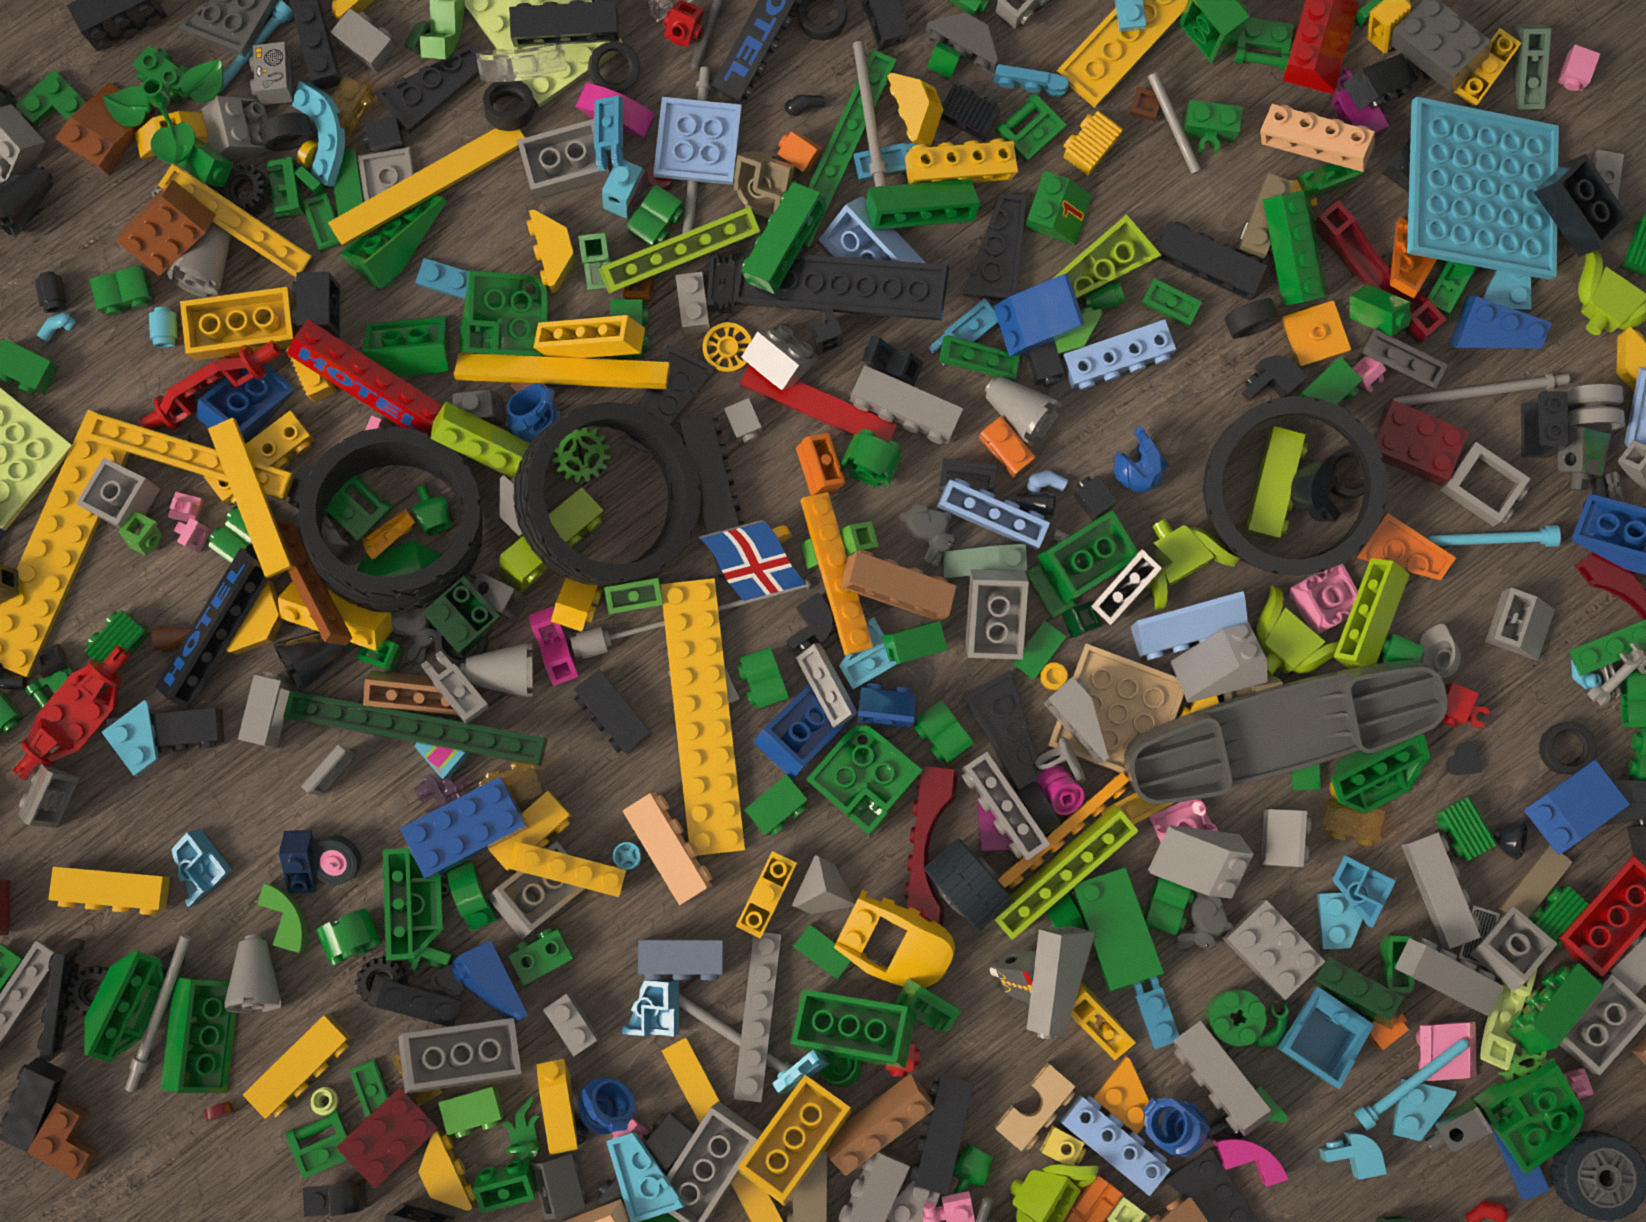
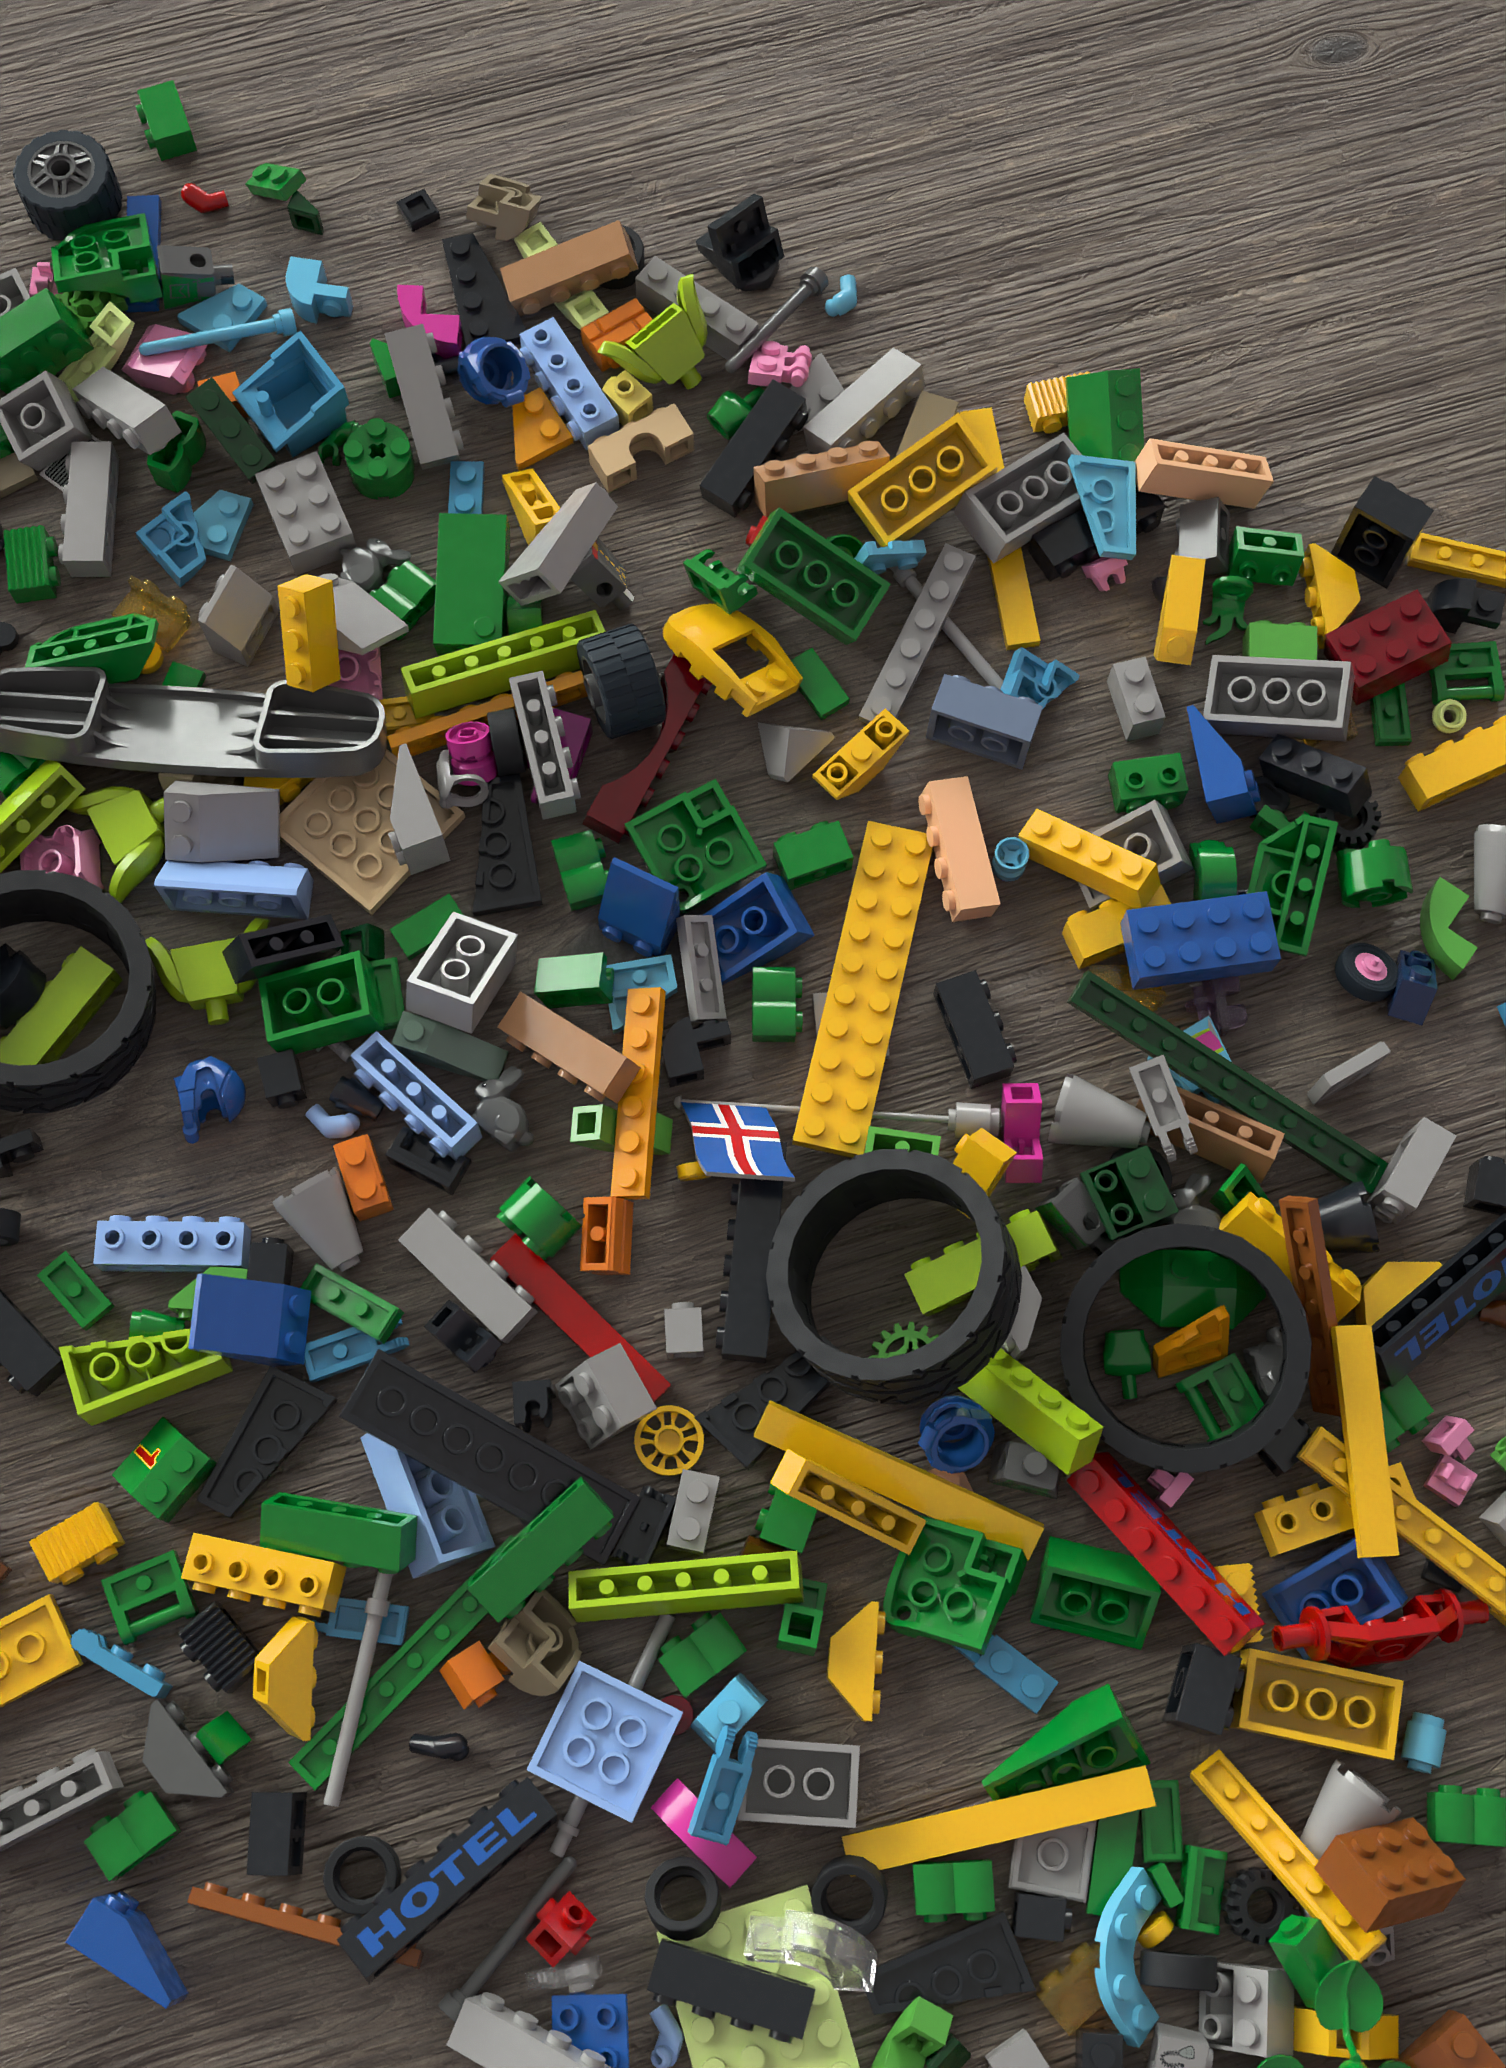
camera: 165 degrees left, 10 degrees down
(444, 133) = (953, 1888): none -> green brick
(596, 1110) = (1130, 592): blue helmet -> none
(1053, 676) = (423, 891): yellow tile -> none
(1216, 825) = (309, 632): none -> yellow brick

